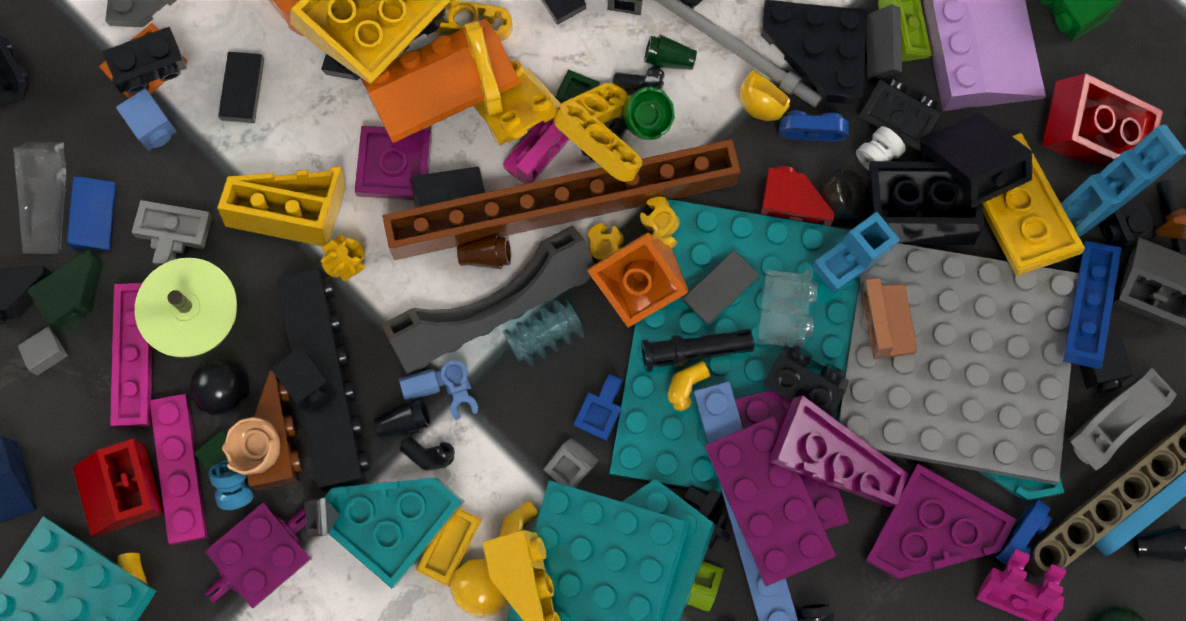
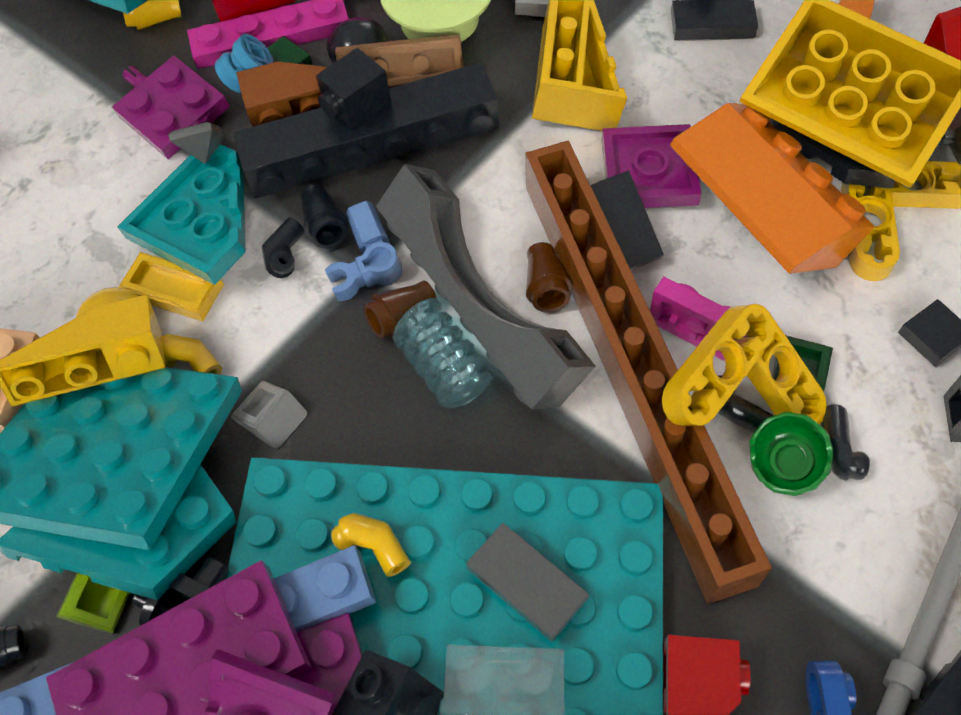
camera: 90 degrees right, 15 degrees down
(250, 348) = (412, 58): none -> medium nougat tile
(251, 446) = (272, 57): light nougat hair -> none
(343, 257) = (526, 121): yellow gear -> none
(479, 53) = (824, 187): yellow helmet -> none
(499, 364) = (390, 306): none -> reddish brown cone
(522, 107) = (752, 276): yellow shield -> none
(599, 413) = (336, 433): blue plate -> none
(640, 278) = (527, 458): orange slope -> none
(661, 220) = (586, 422): yellow helmet -> none
(669, 54) = (897, 479): dark green cone -> none
(679, 350) = (420, 525): black pin -> none
(762, 98) = (864, 629): yellow hair -> none

